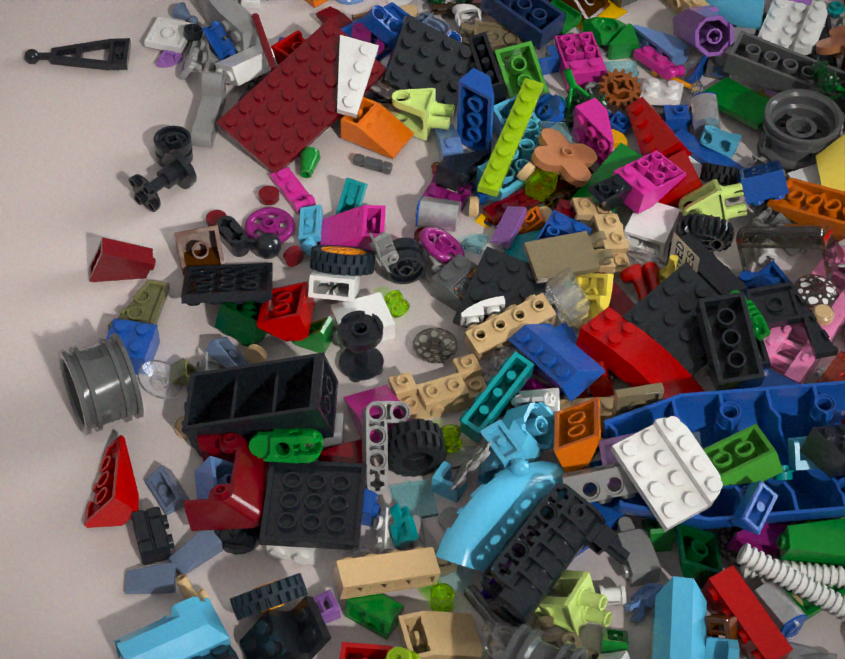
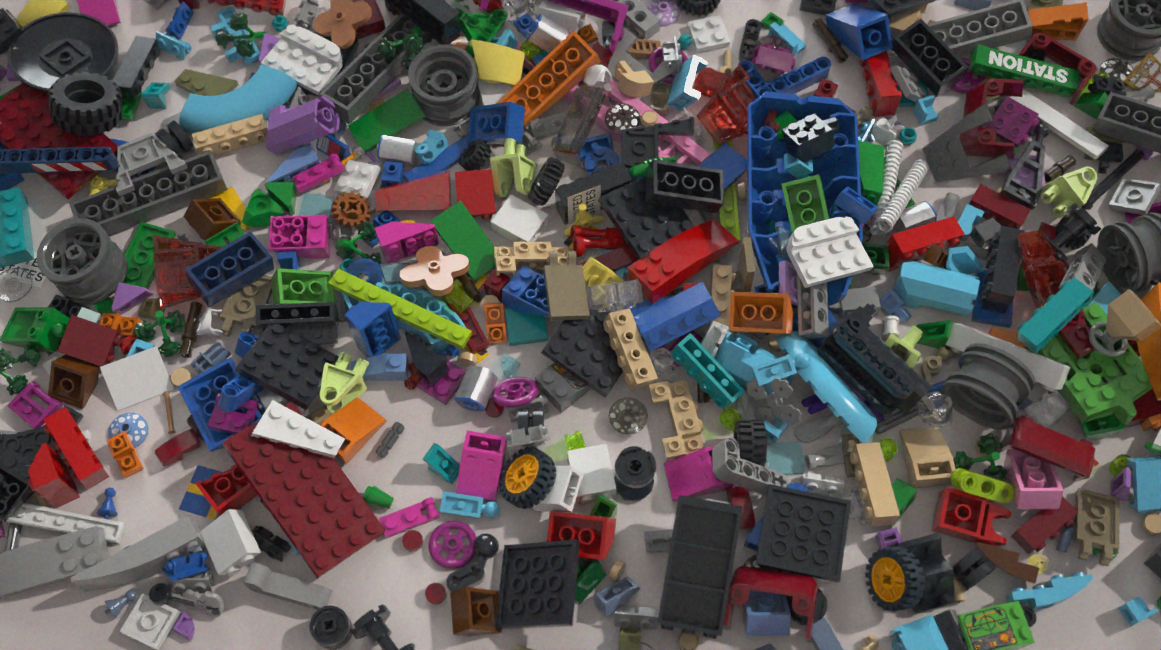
camera: 80 degrees left, 15 degrees up
(263, 41) = (234, 513): dark red bar -> none
(267, 445) = (750, 545): green piece -> none
(293, 256) = (500, 524): dark red piece -> none
(403, 528) = (823, 468): teal plate -> none
(476, 312) = (613, 370): white slope -> none
(509, 226) = (505, 331): medium lavender slope -> none
(526, 171) = (449, 304): tan piece -> none
(611, 192) = (498, 239): black slope -> none
(645, 256) = (561, 230): clear dish -> none
(650, 180) = (483, 210): dark pink slope -> none

